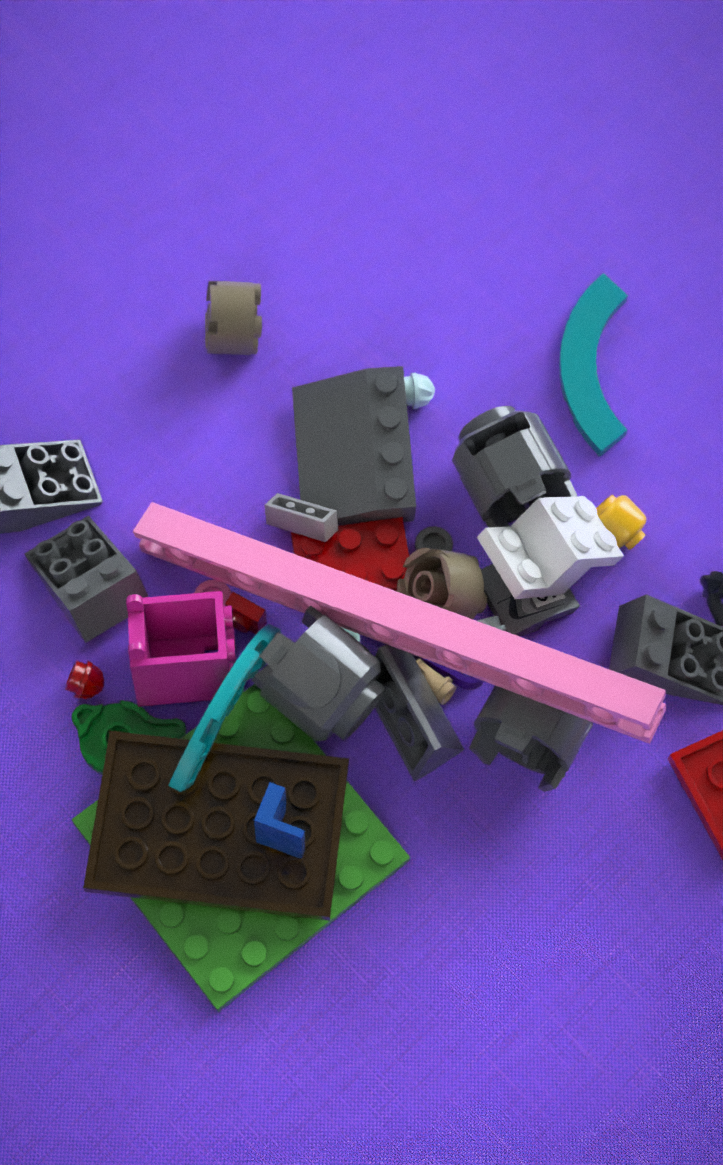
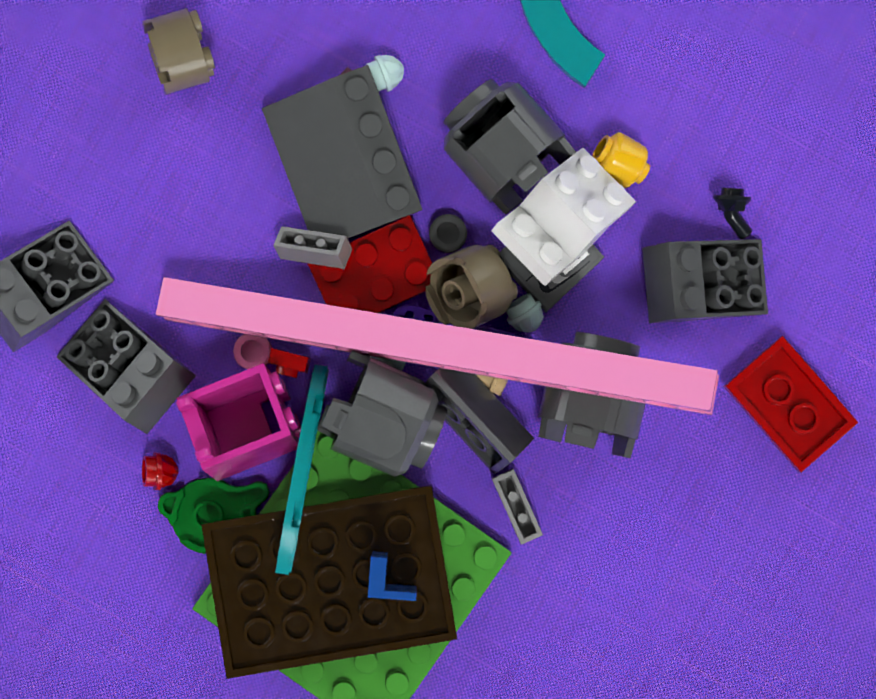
camera: 15 degrees left, 20 degrees up
(428, 815) = (517, 506): none -> light grey piece

